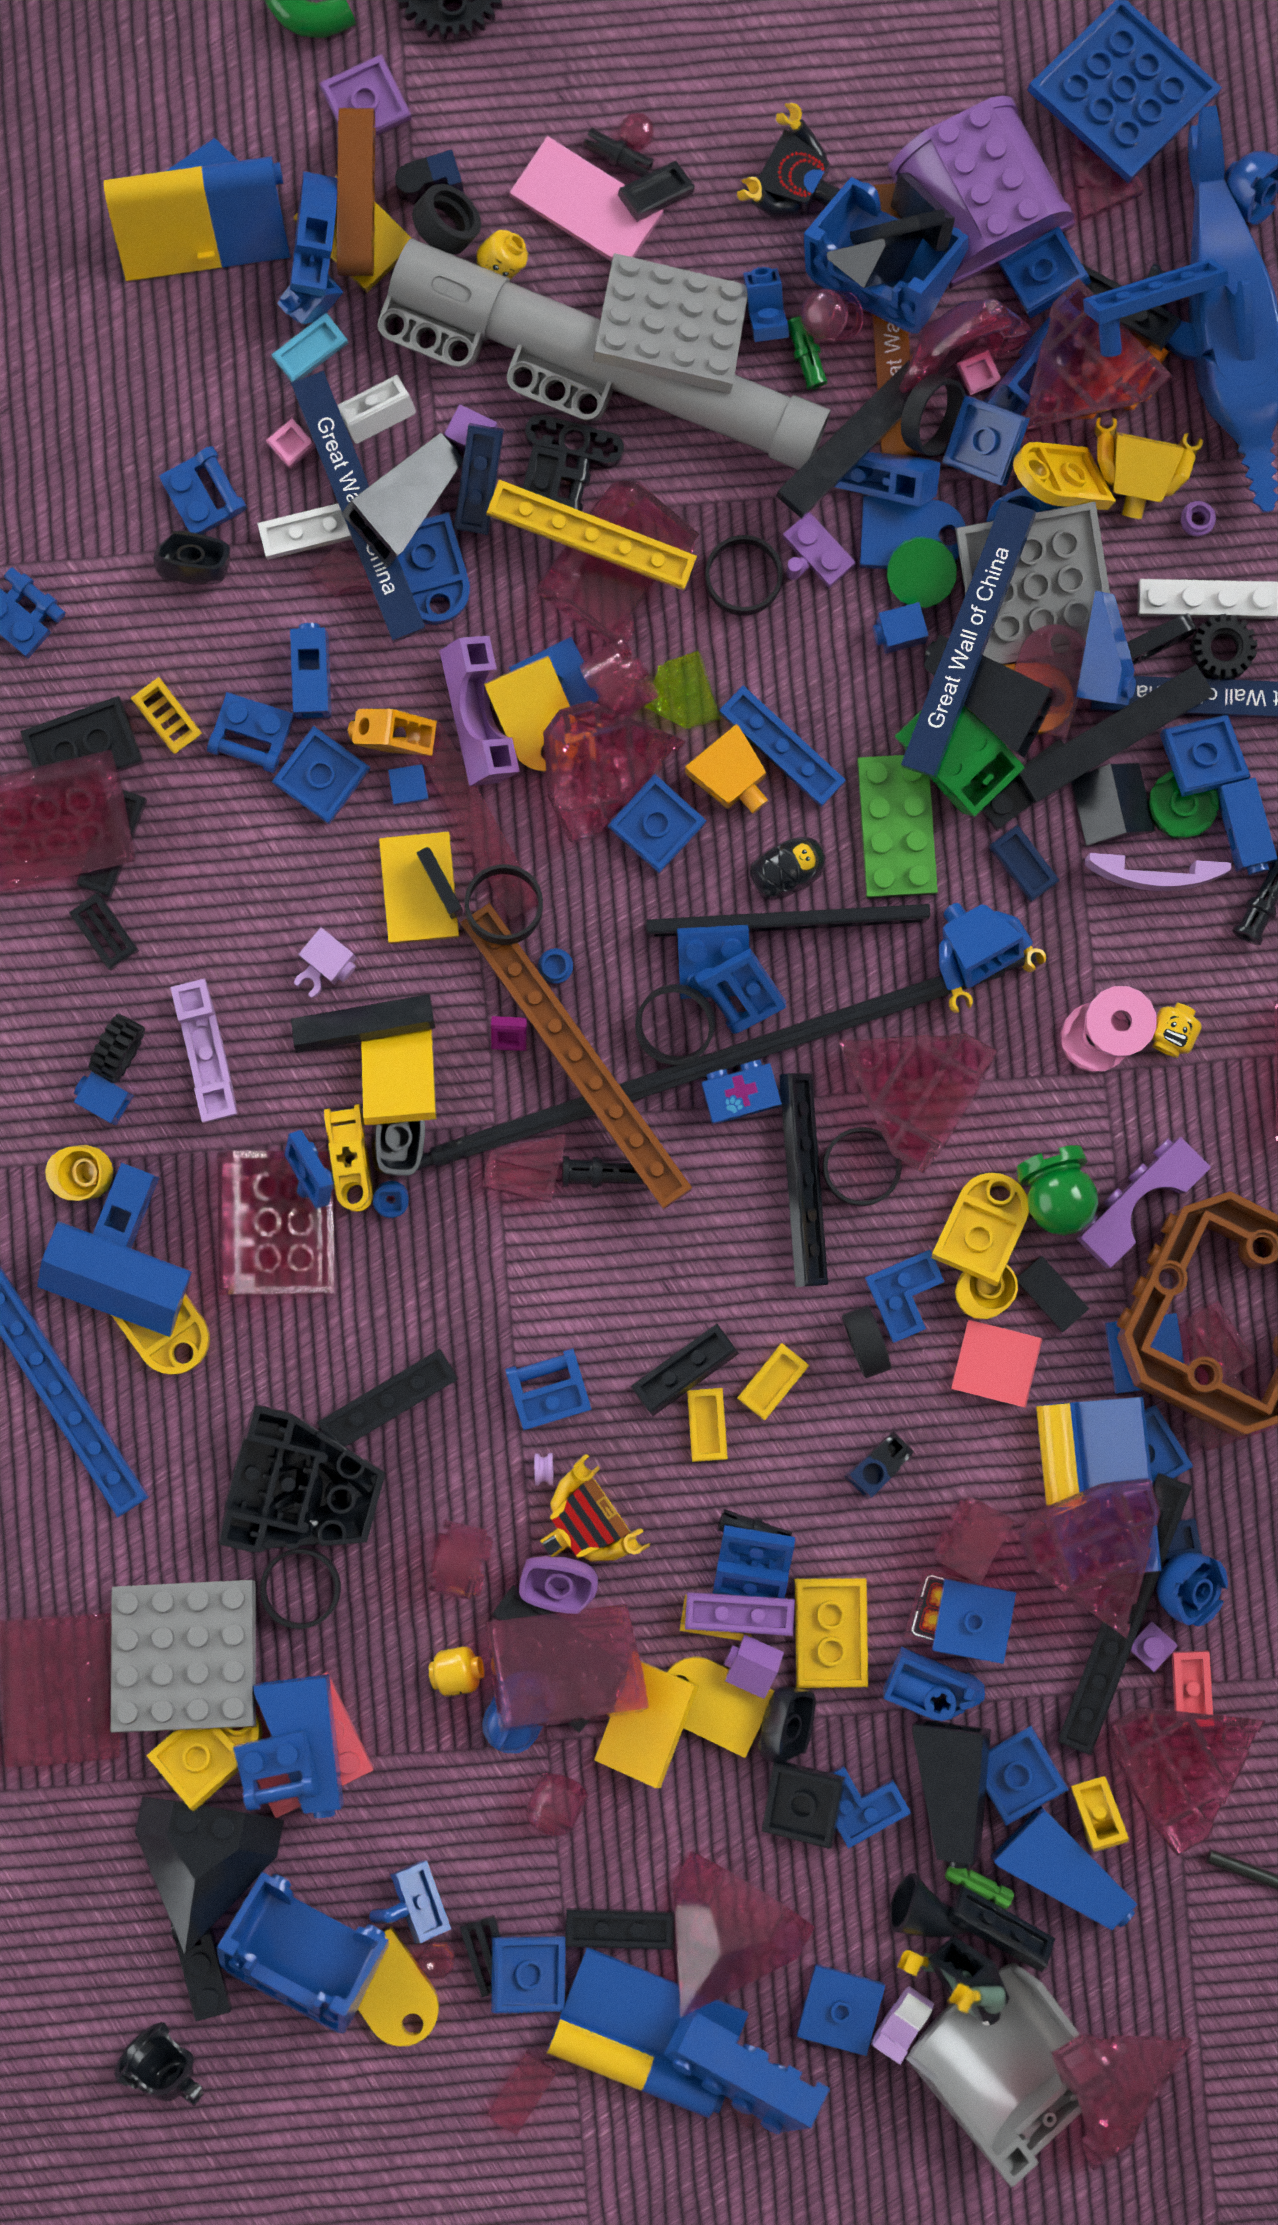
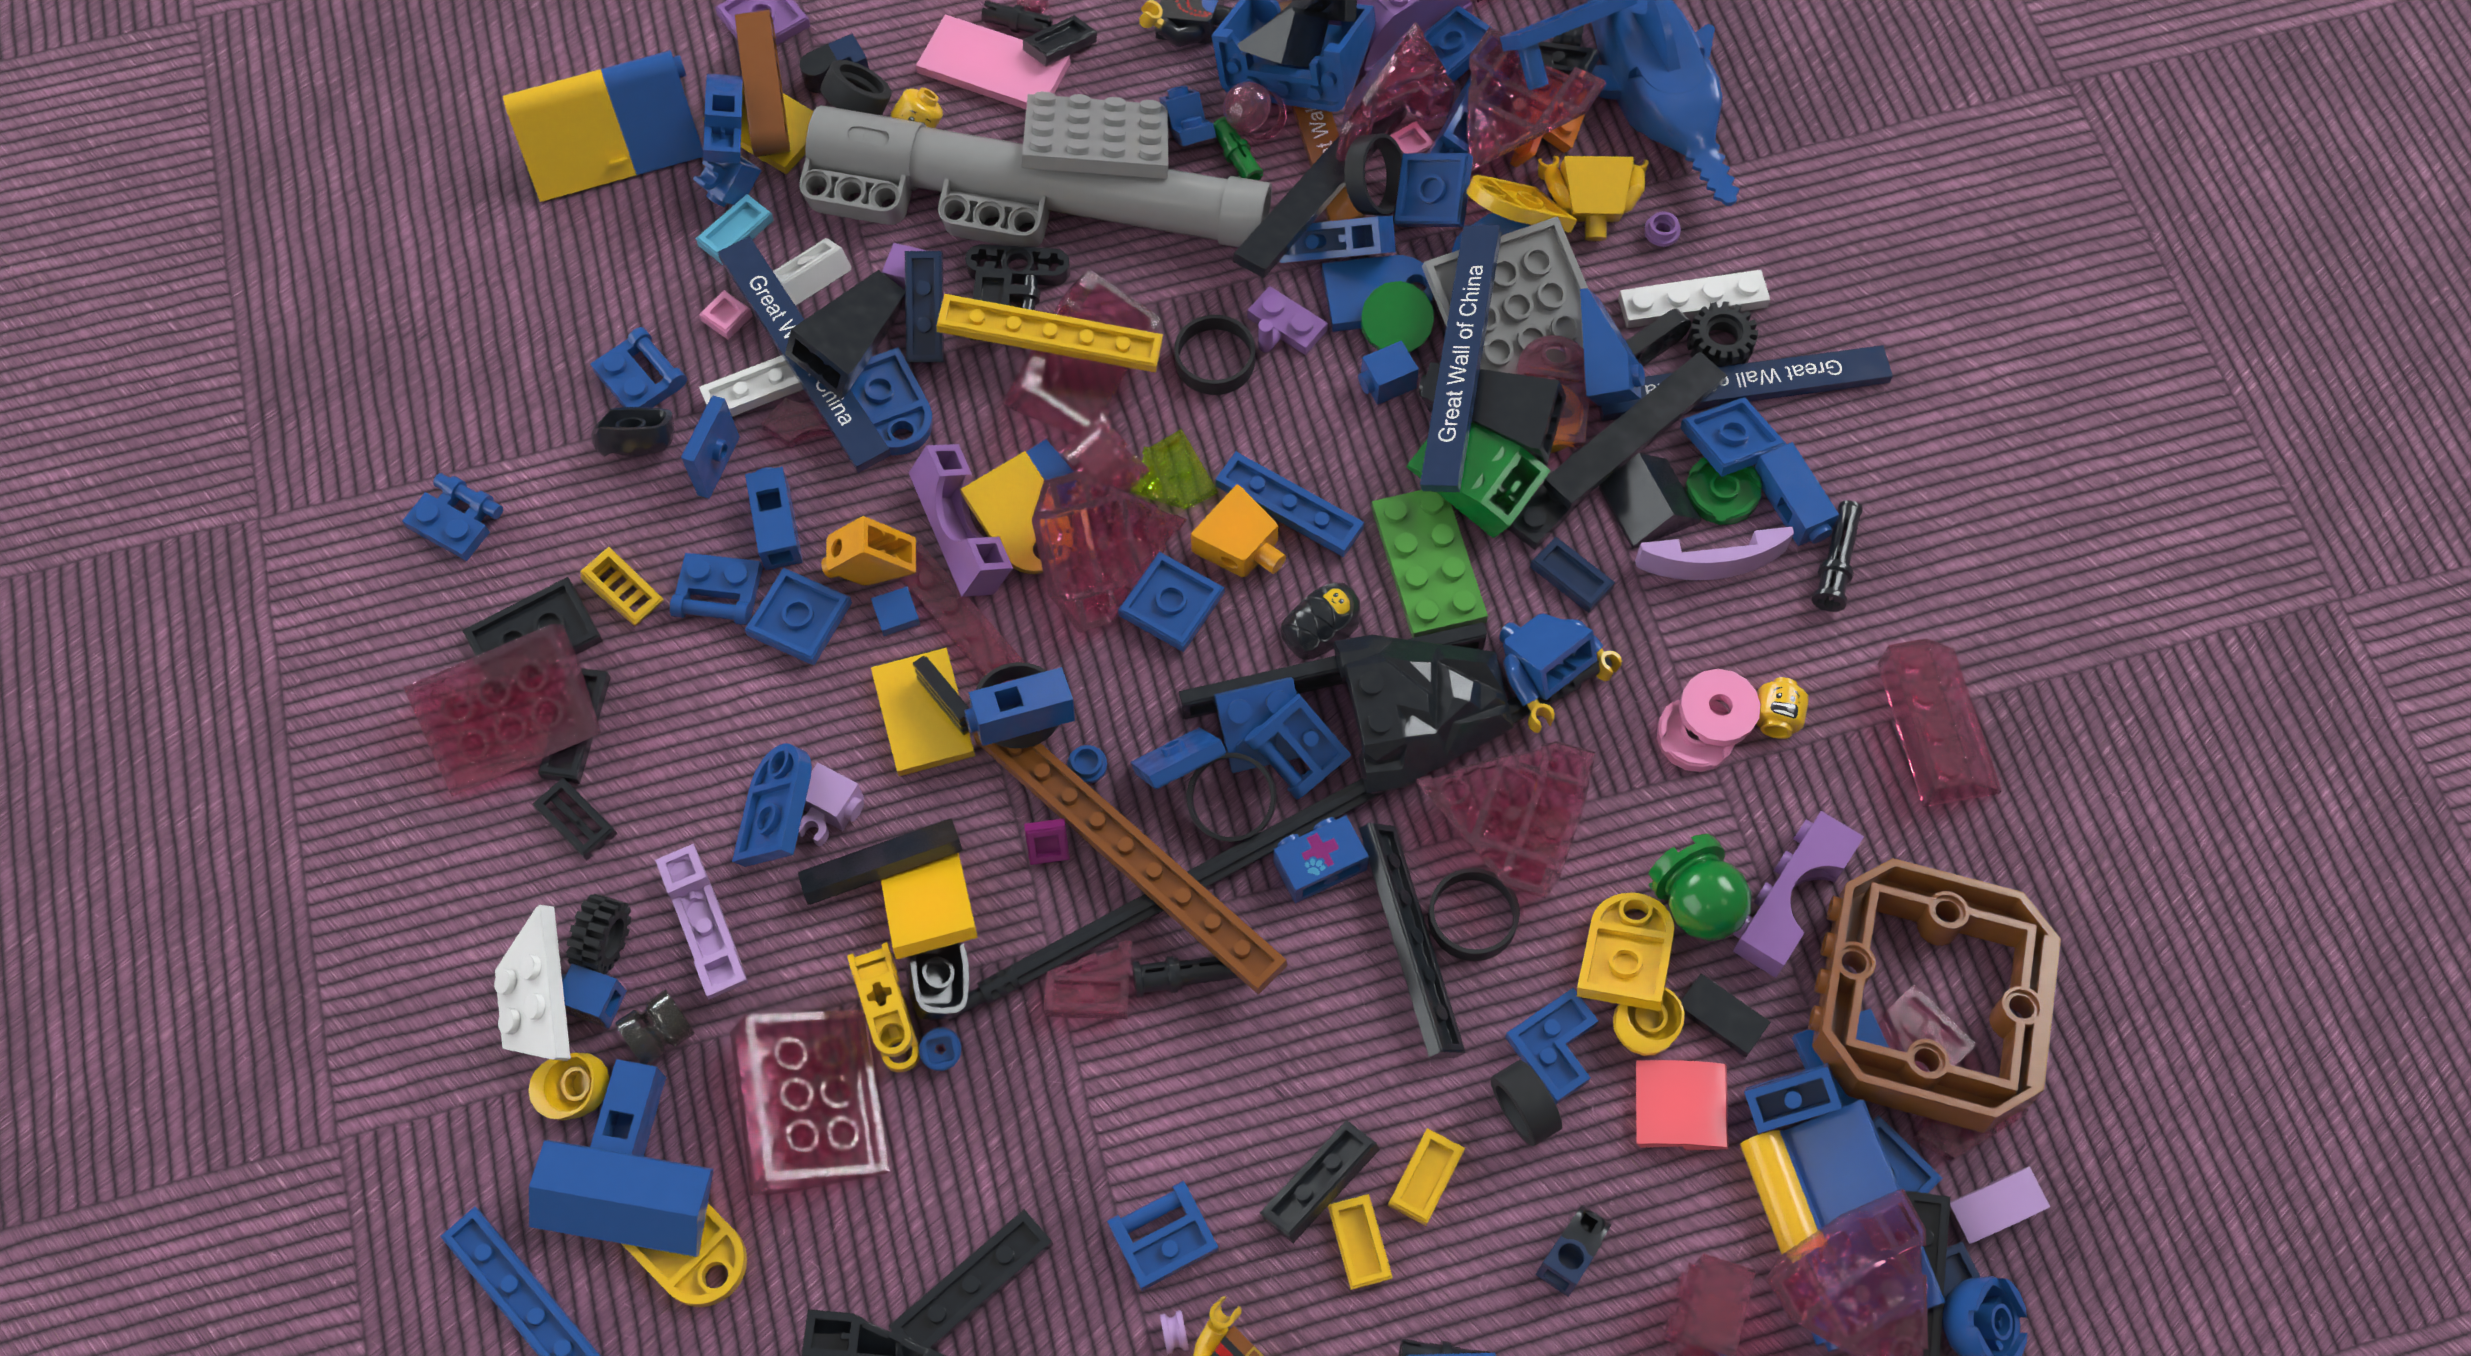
camera: 10 degrees left, 20 degrees down
(56, 1090) = (532, 991): none -> white wing
(166, 1131) = (654, 1028): none -> clear smoke wheel
(262, 594) = (710, 446): none -> blue plate
(278, 958) = (774, 806): none -> blue tile
(313, 1178) = (839, 1022): blue plate -> none
(504, 916) = (1020, 706): none -> blue brick
(635, 981) = (1178, 757): none -> blue plate
(855, 972) = (1419, 705): none -> black wedge
(1087, 1380) = (1793, 1098): none -> blue brick
(1233, 1496) = (1999, 1205): none -> lavender slope

